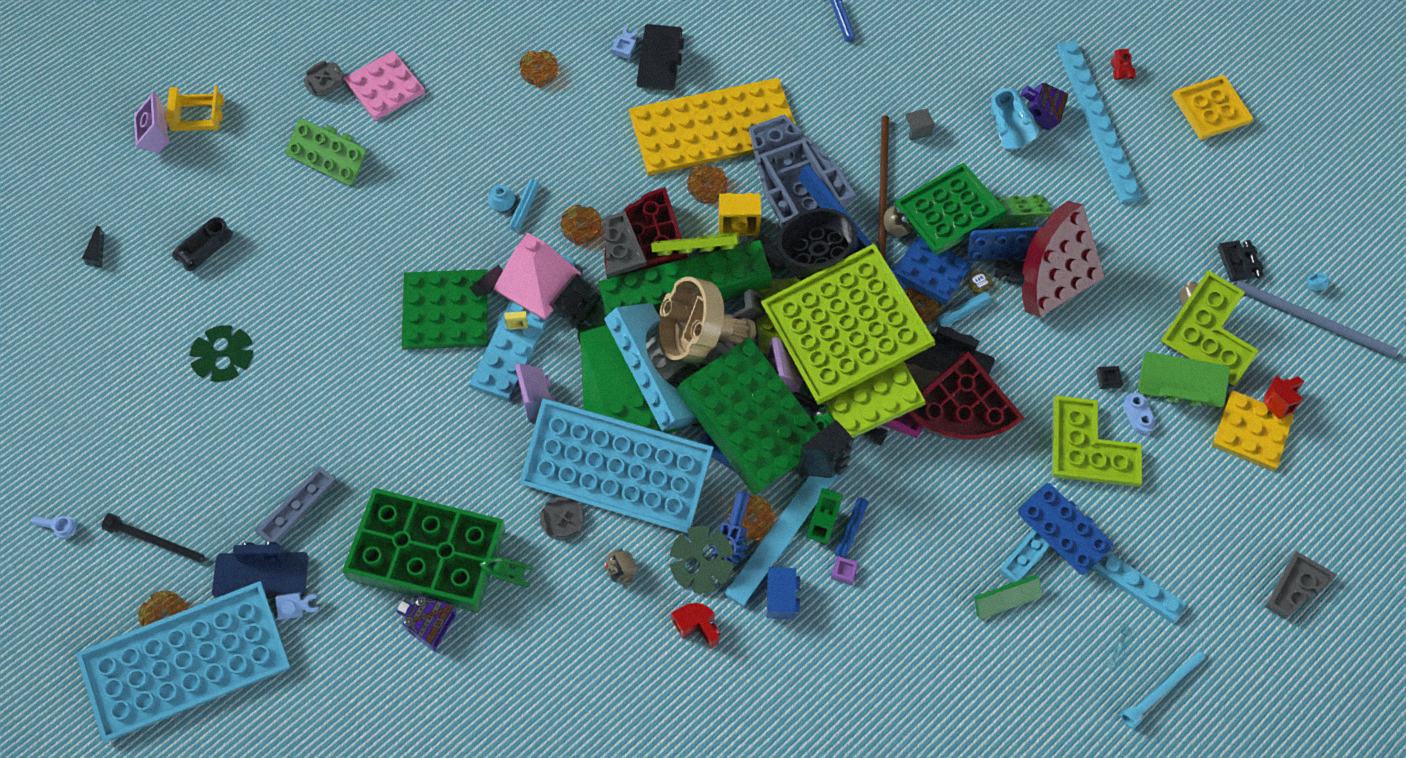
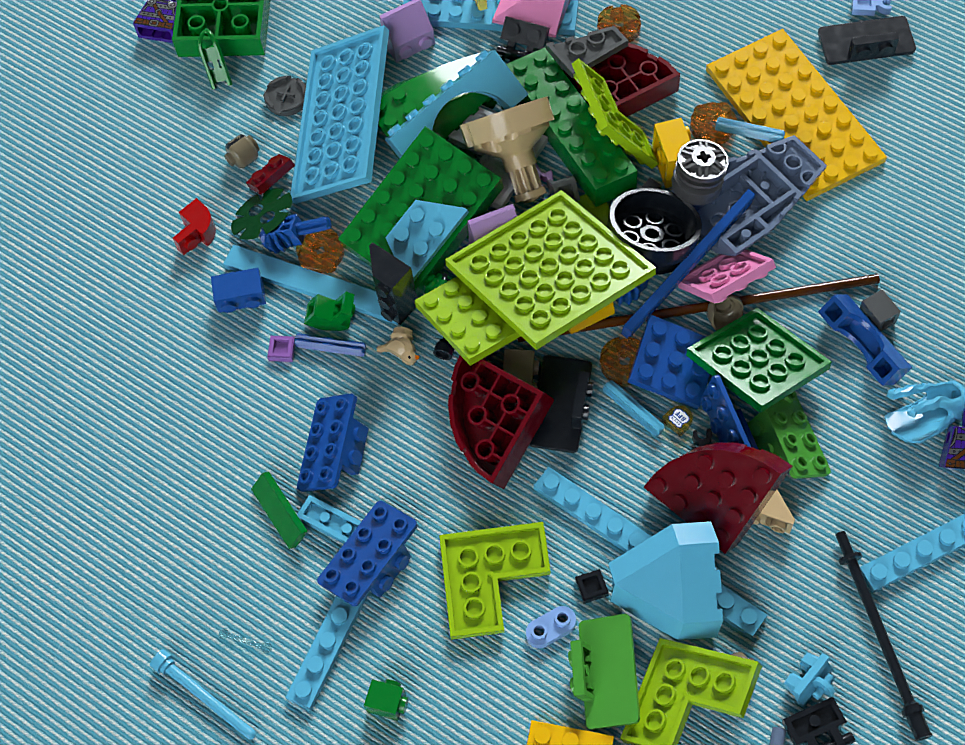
camera: 85 degrees right, 0 degrees up
(654, 546) = (270, 173): none -> dark red plate
(731, 156) = (749, 130): none -> medium azure axle
(782, 193) = (699, 172): none -> flat silver wheel
(784, 413) = (423, 232): none -> medium azure wing
(869, 468) = (401, 345): none -> tan animal
(875, 205) = (726, 275): none -> bright pink plate
(953, 543) = (333, 444): none -> blue bracket
(958, 133) = (881, 356): none -> blue arch
(1084, 333) = (626, 536): none -> medium azure plate
(1127, 314) = (672, 581): none -> medium azure panel
(1187, 542) = (386, 699): none -> green brick
(1210, 259) = (815, 682): none -> medium azure hips
(1232, 200) = (912, 710): none -> black bar

